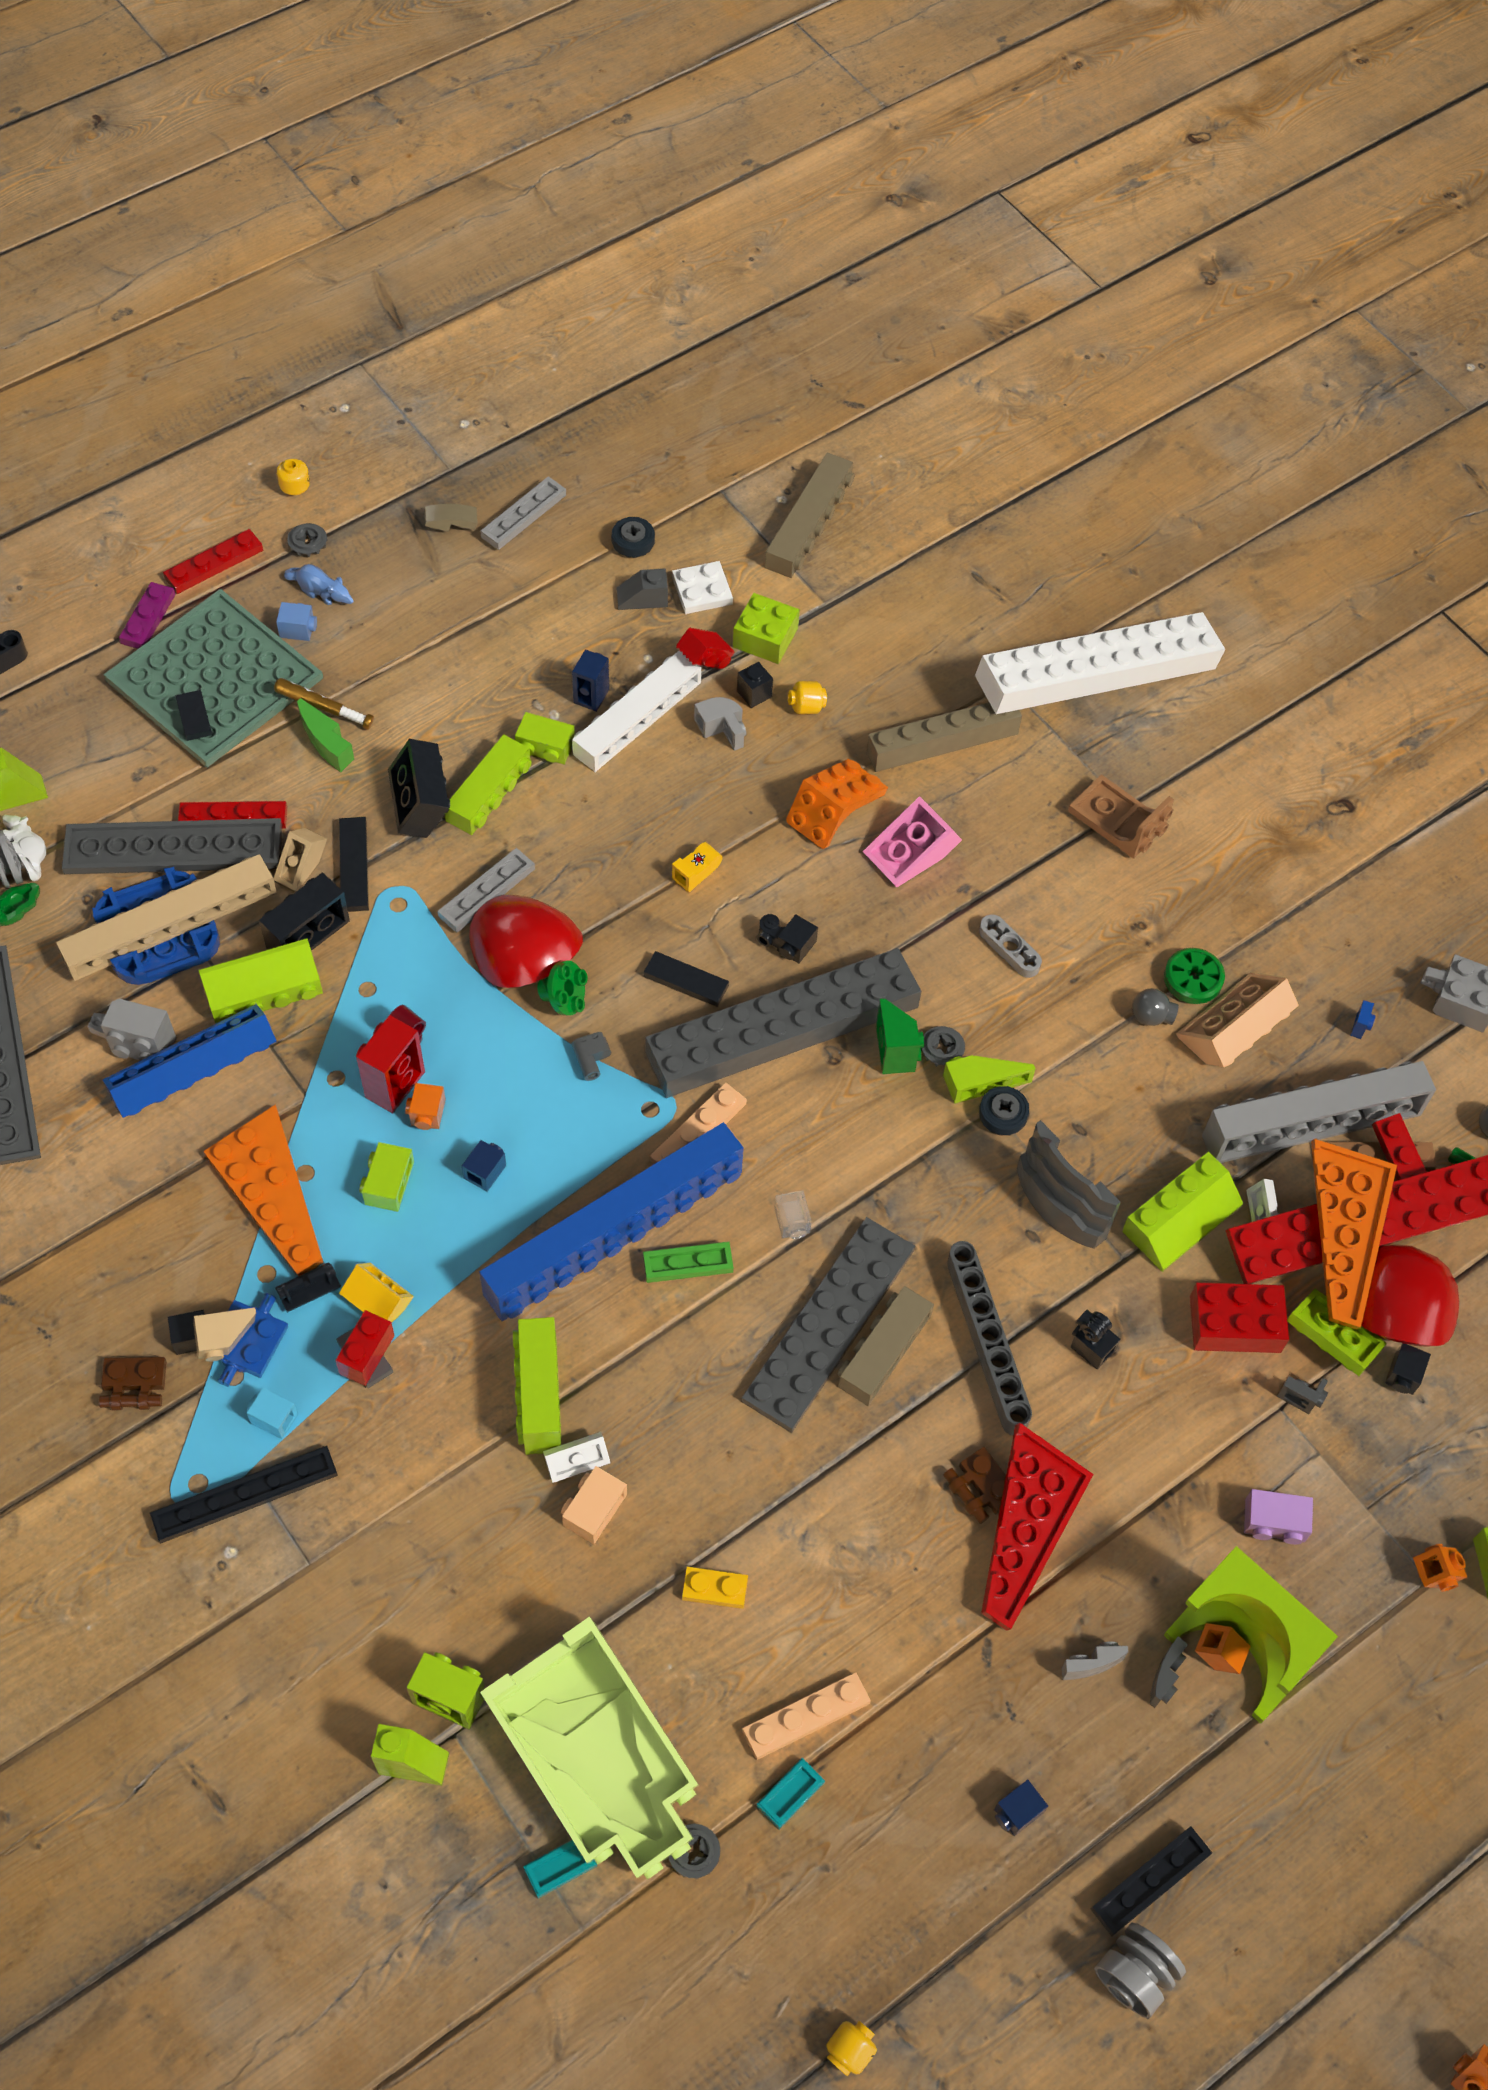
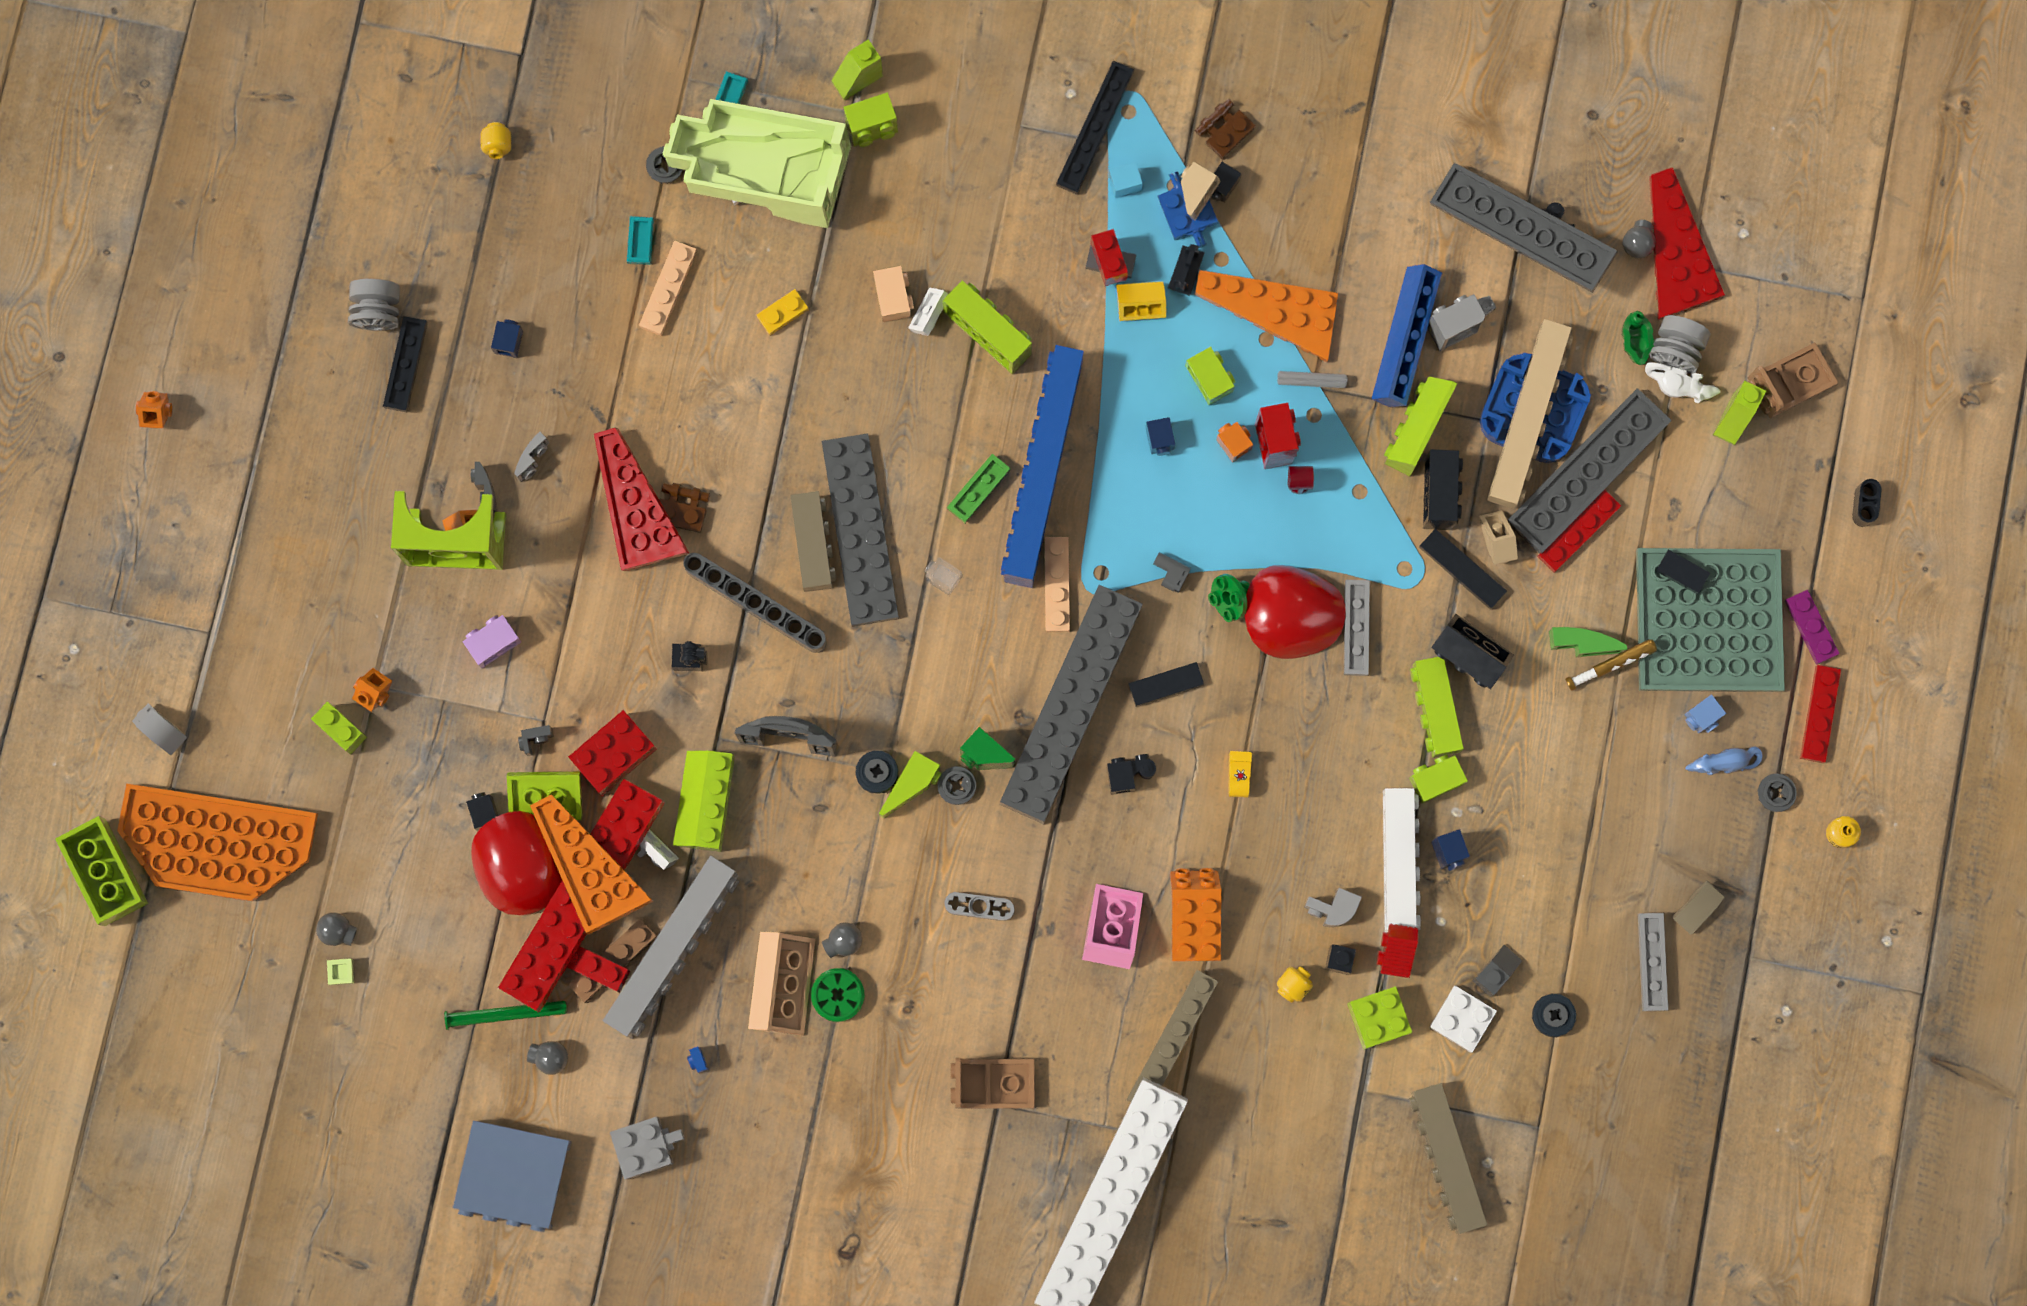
camera: 140 degrees right, 20 degrees up
(306, 1103) = (1312, 379): none -> light grey axle

